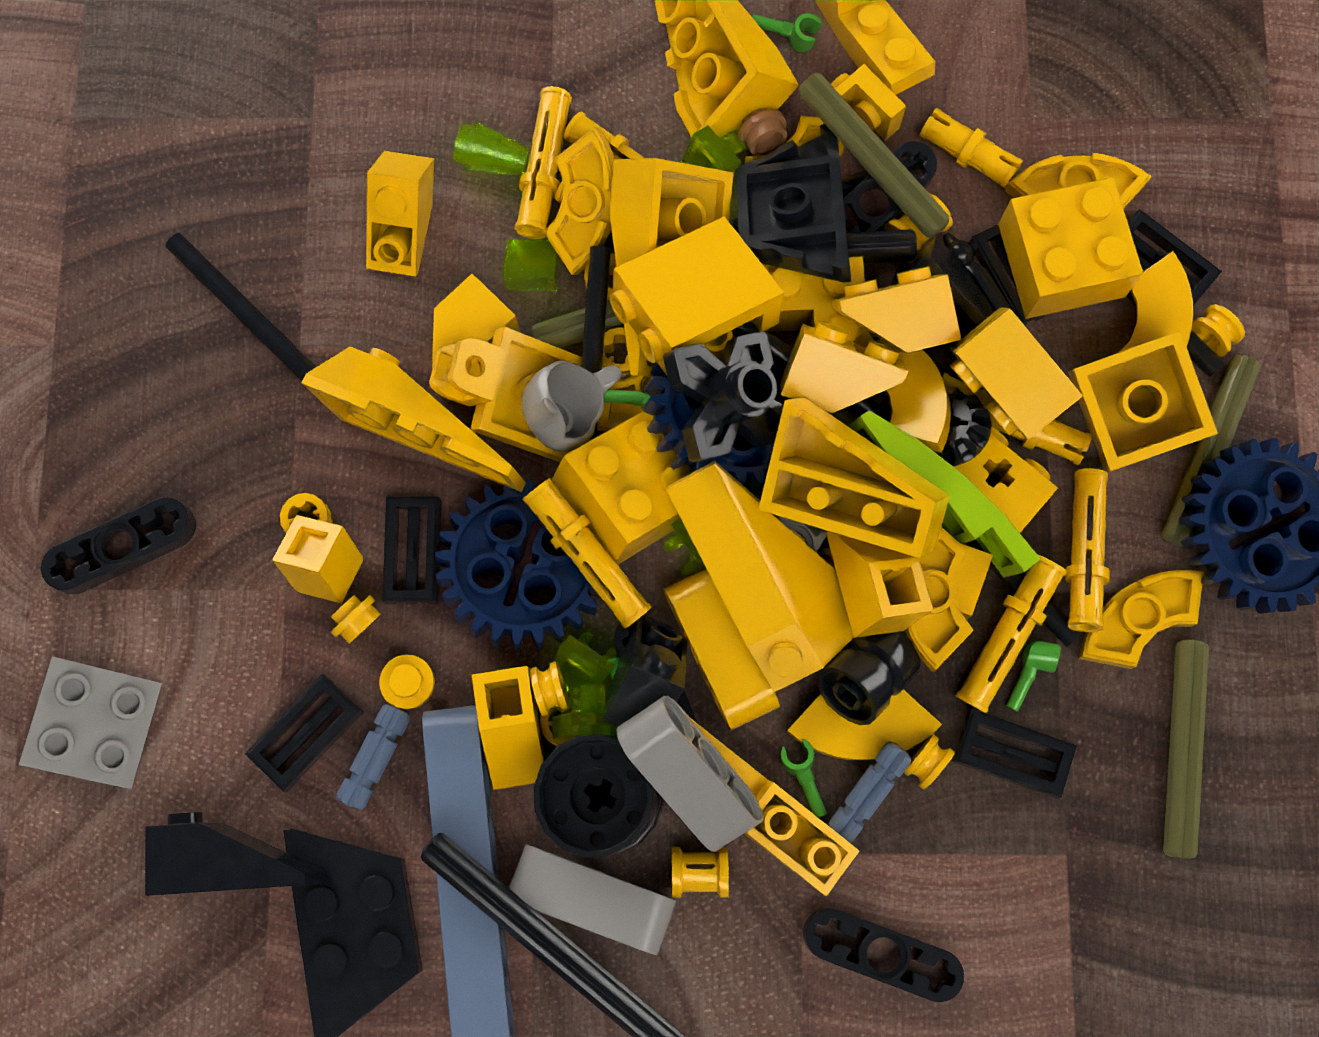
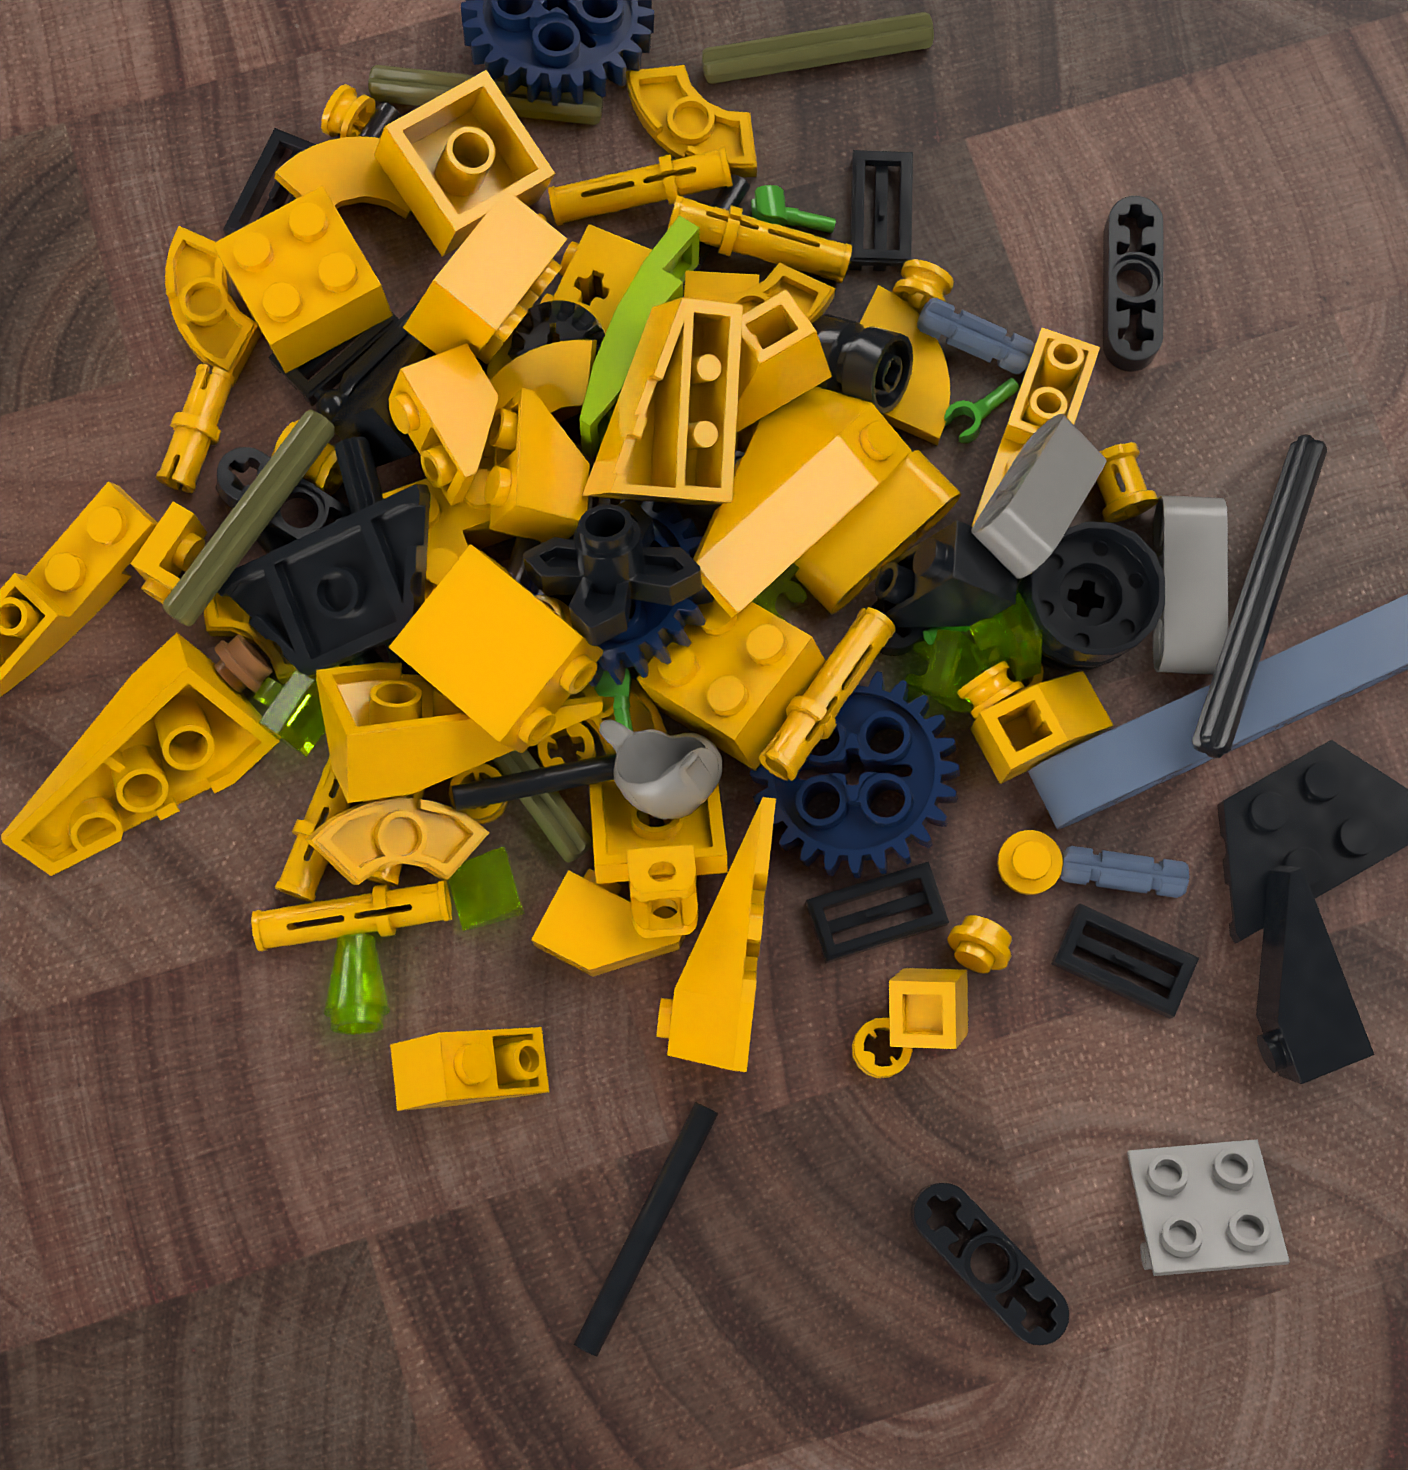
camera: 110 degrees left, 0 degrees up
(797, 40) = (94, 674): bright green hand -> none

